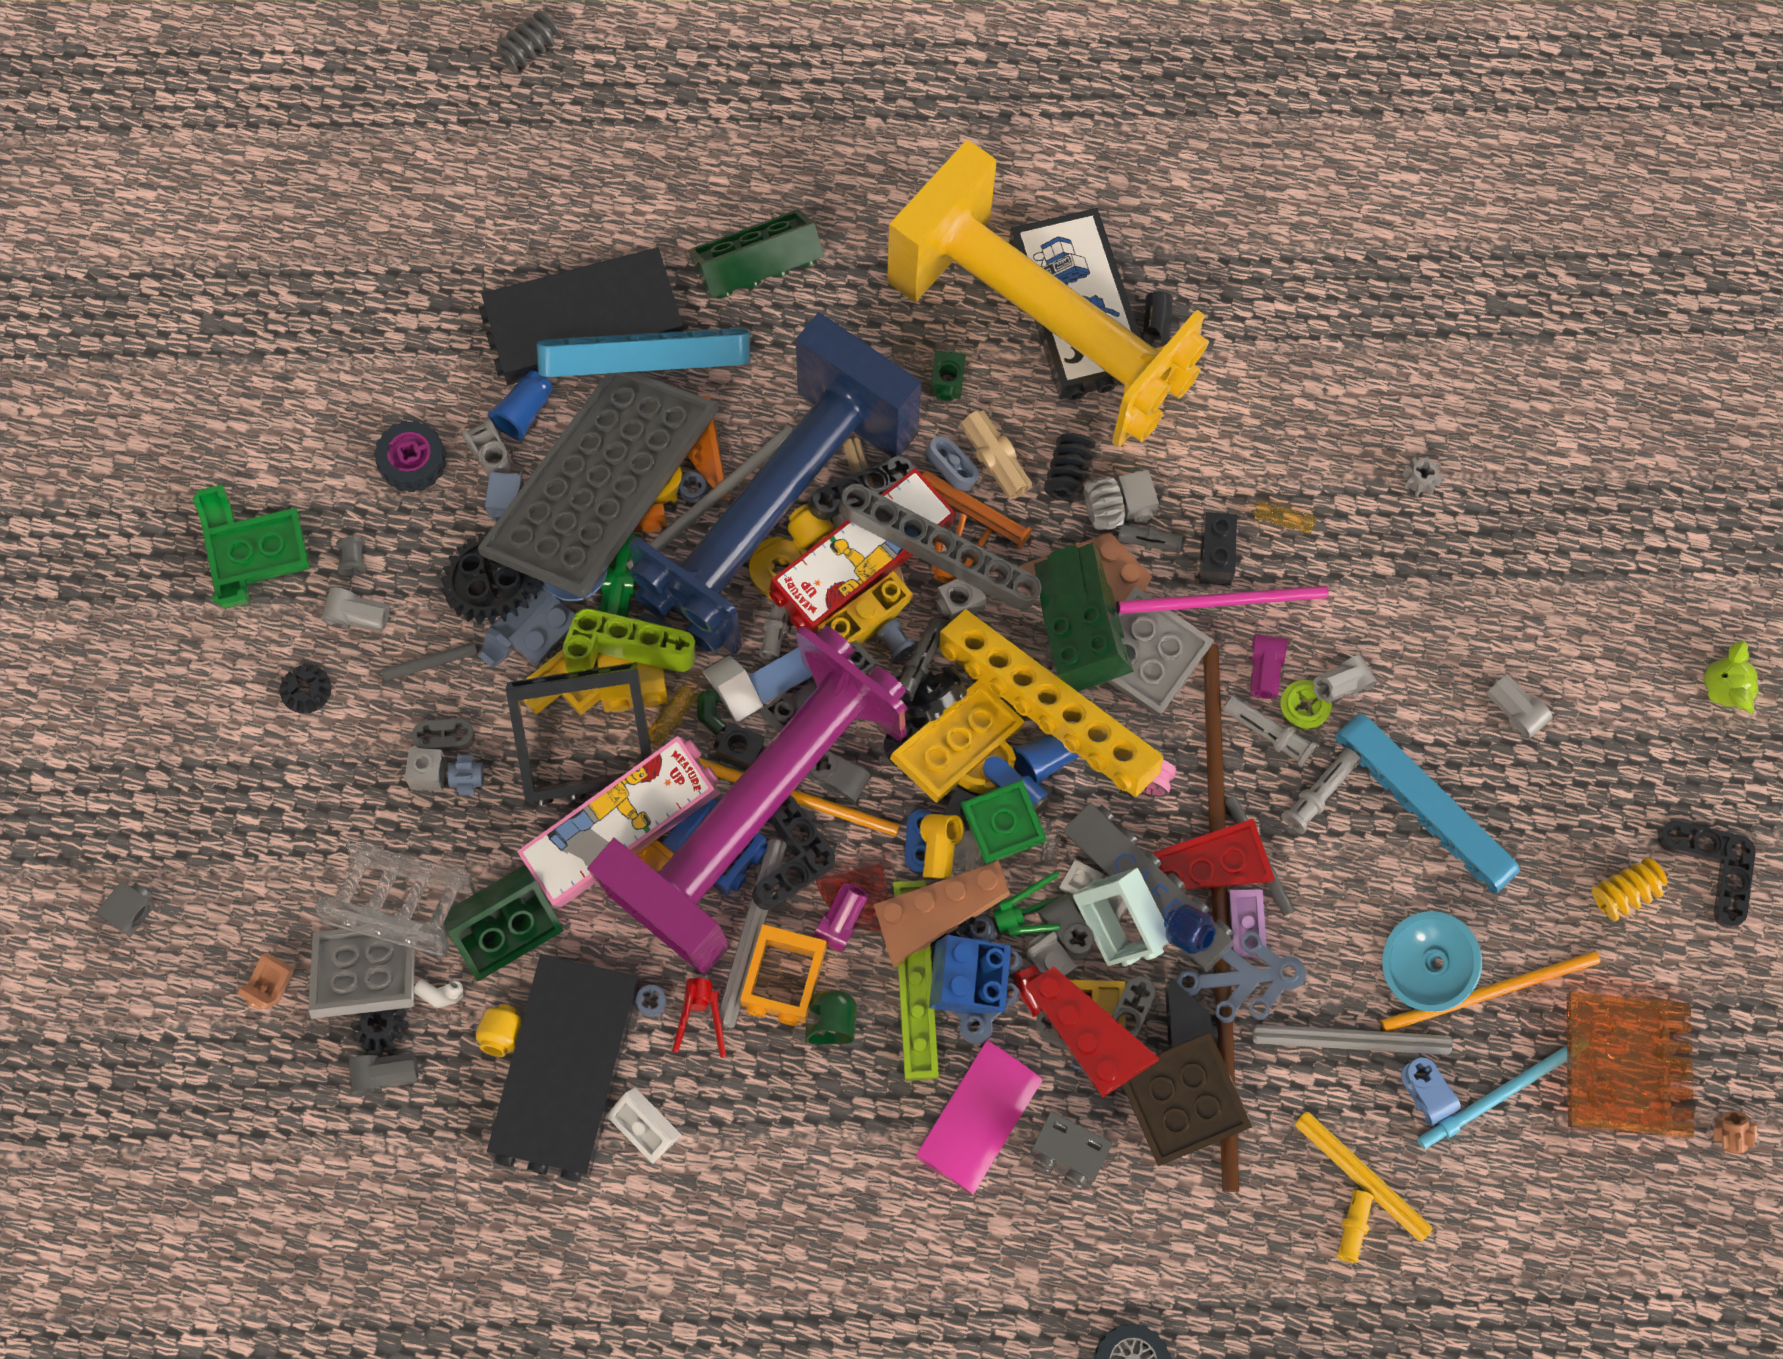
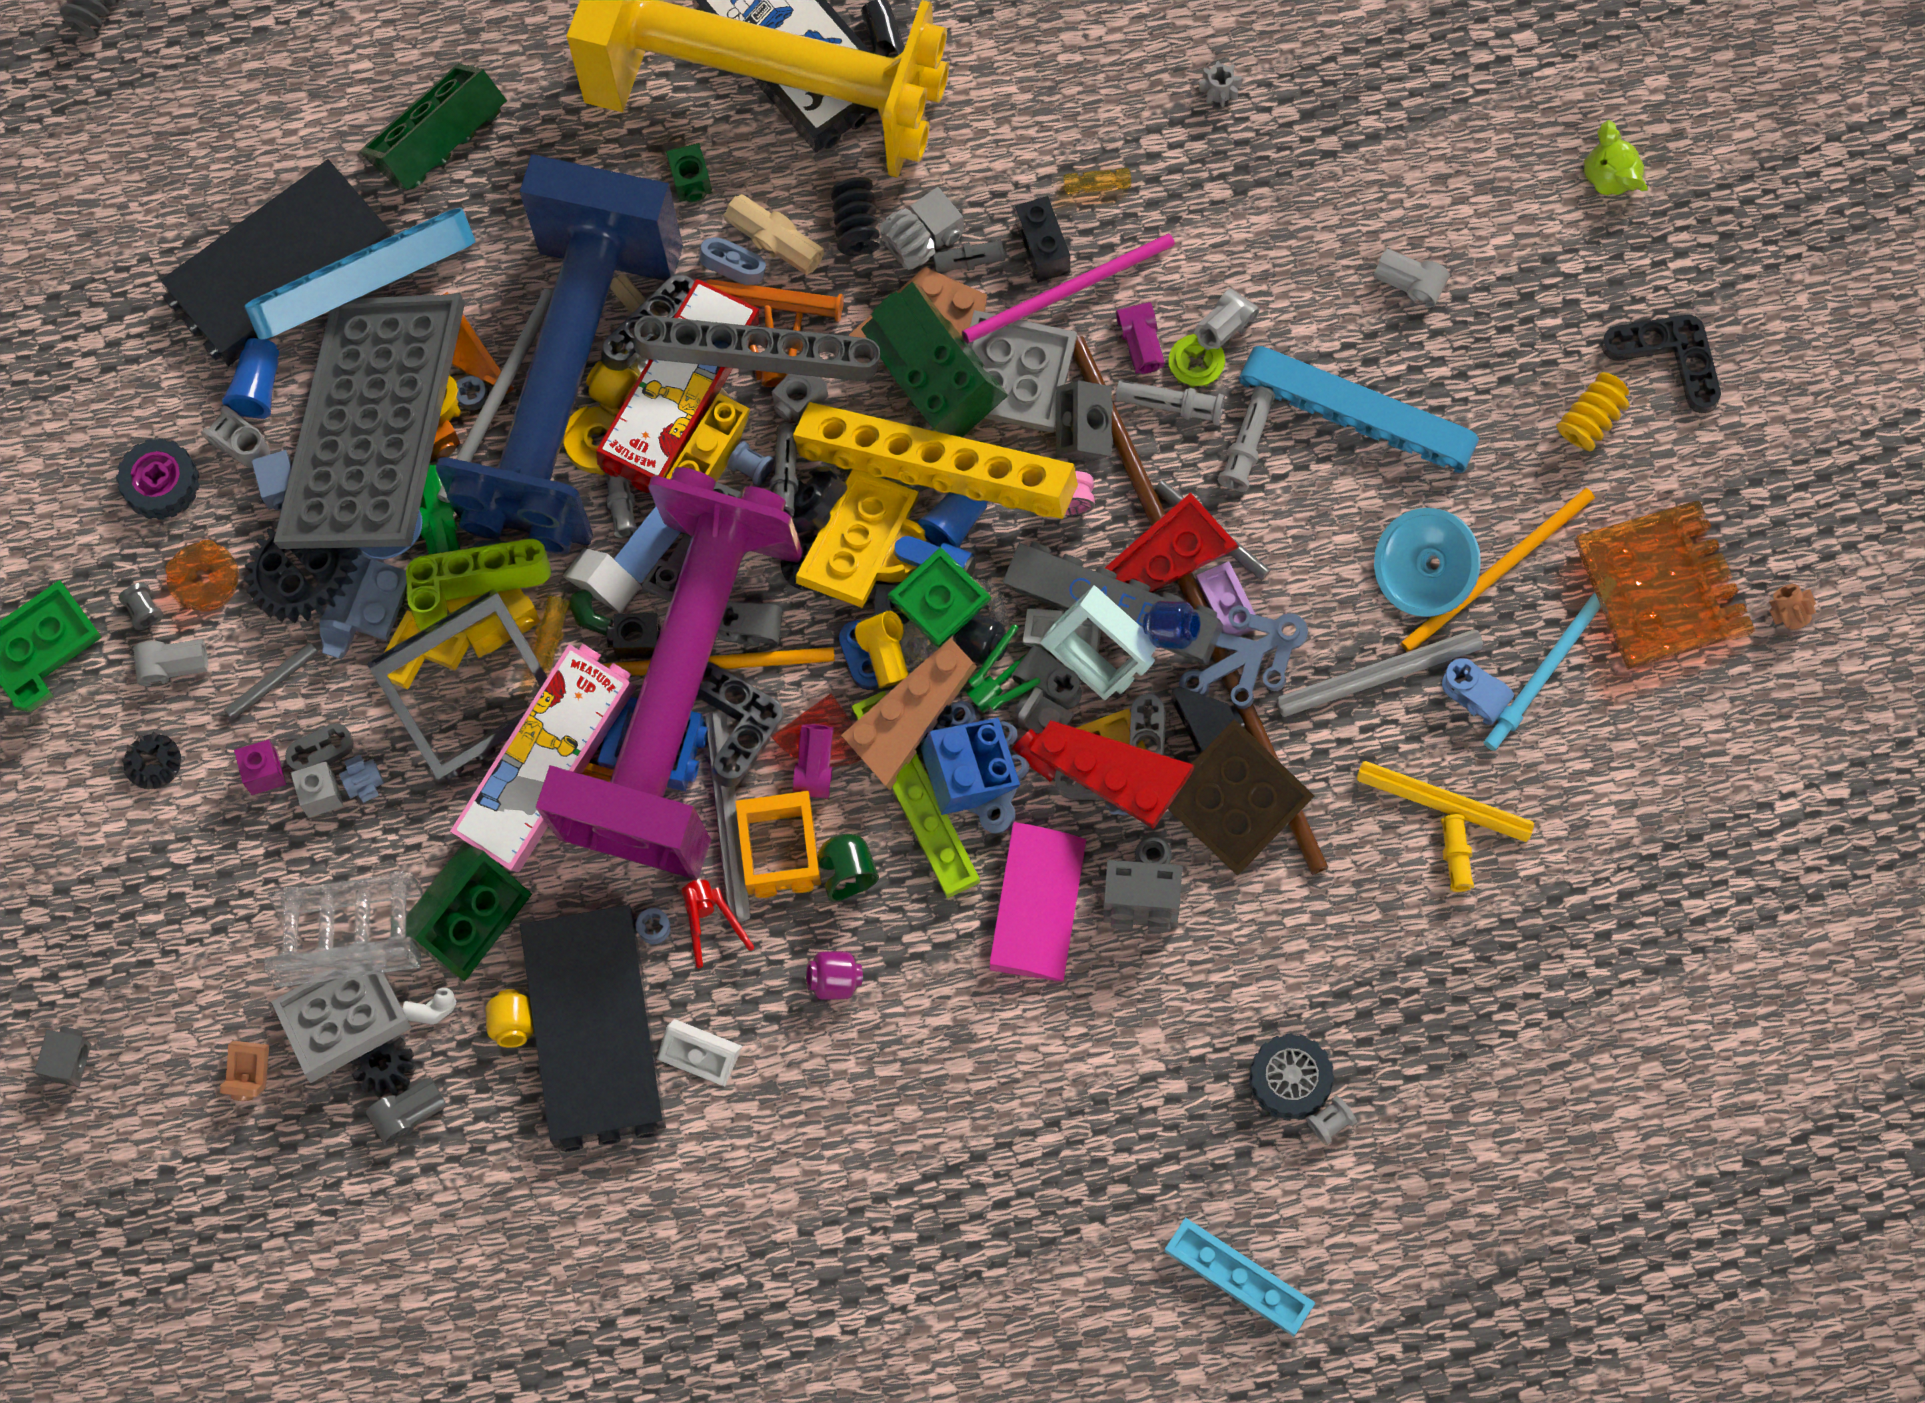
camera: 15 degrees left, 0 degrees up
(388, 731) = (260, 767): none -> magenta brick
(397, 541) = (184, 569): none -> clear orange plate
(782, 1108) = (833, 975): none -> magenta head
(1024, 869) = (980, 638): none -> black head
(1101, 1109) = (1153, 843): none -> dark grey plate
(1188, 718) = (1084, 421): none -> dark grey brick

